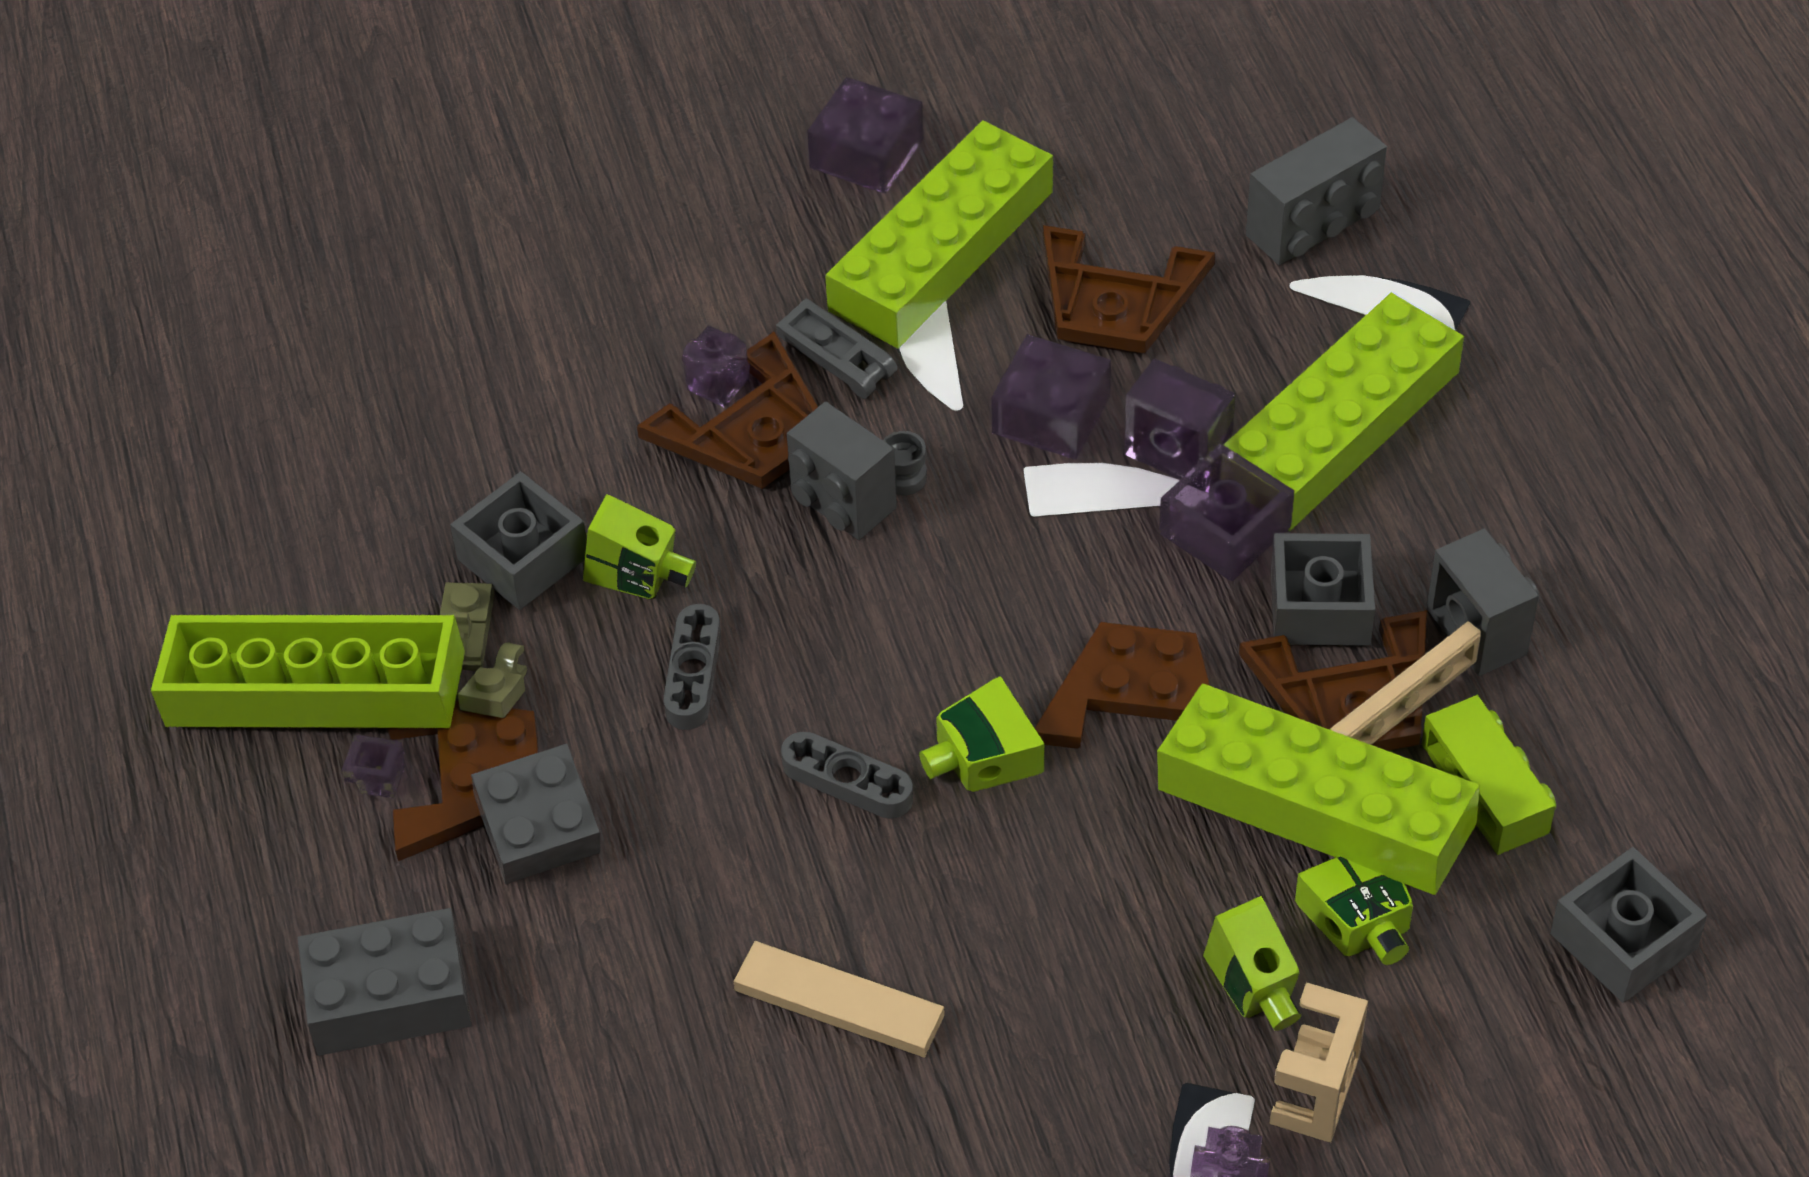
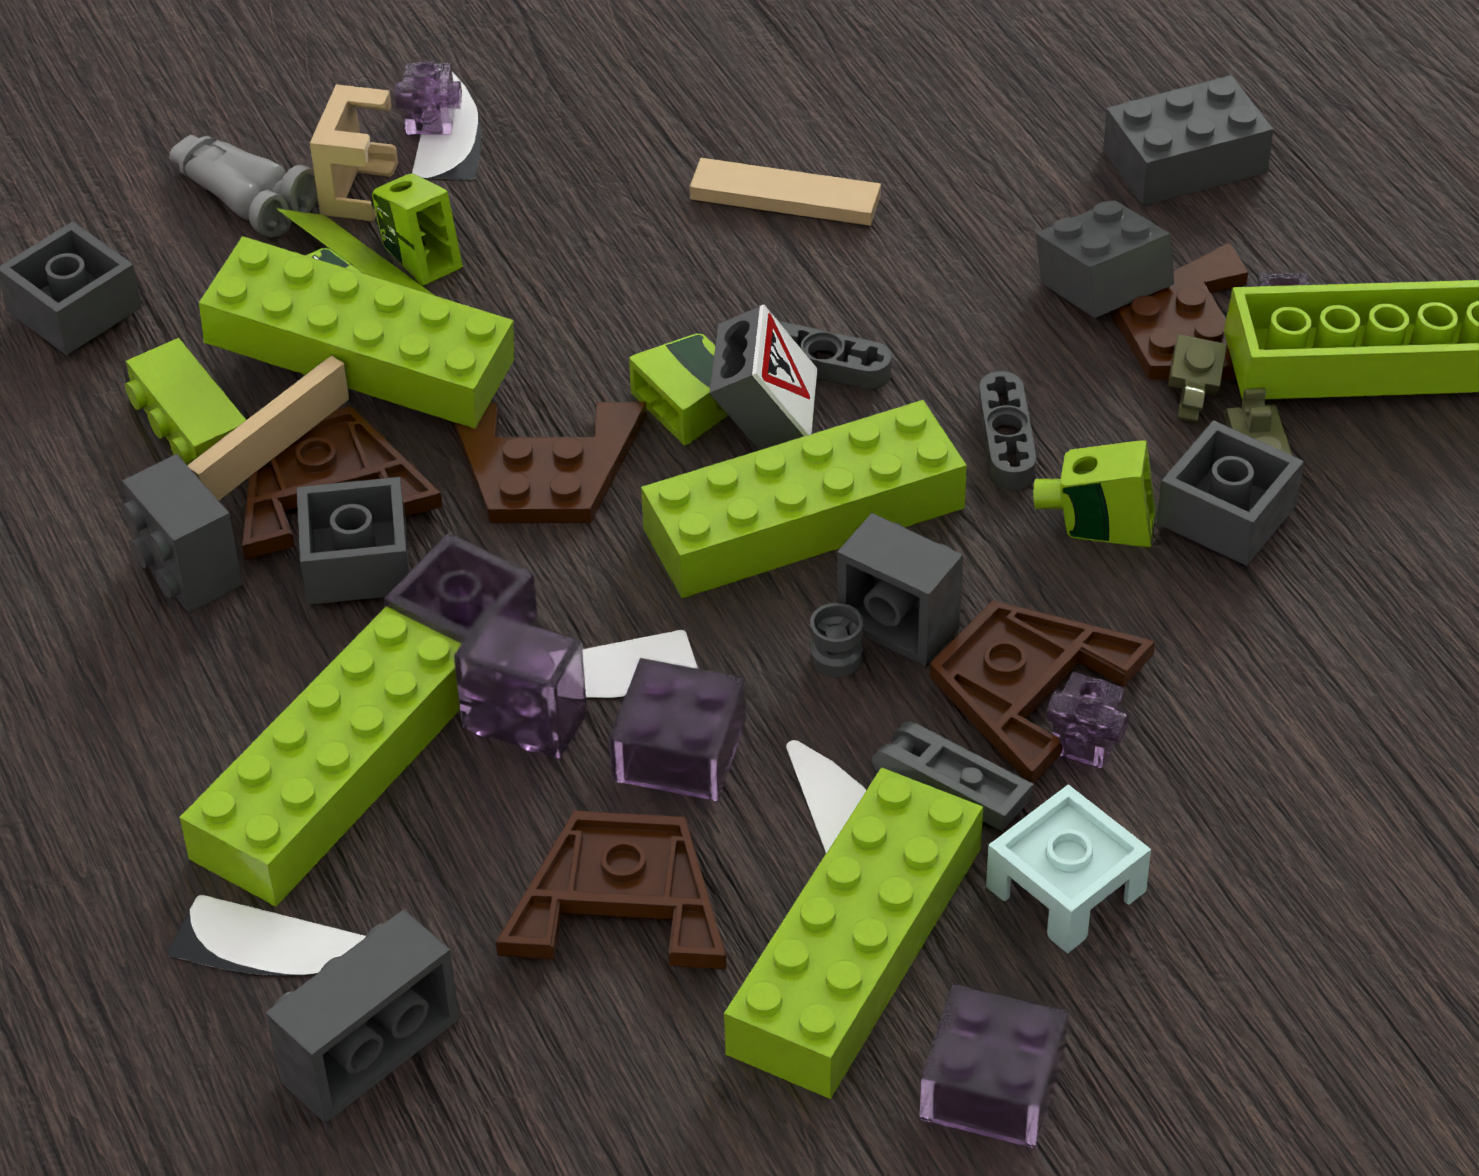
camera: 170 degrees right, 5 degrees down
(767, 250) = (1069, 861): none -> light aqua panel
(902, 595) = (801, 497): none -> lime brick
(917, 689) = (763, 379): none -> piece
(1325, 949) = (351, 248): none -> lime sticker
(1447, 1080) = (247, 182): none -> light grey piece

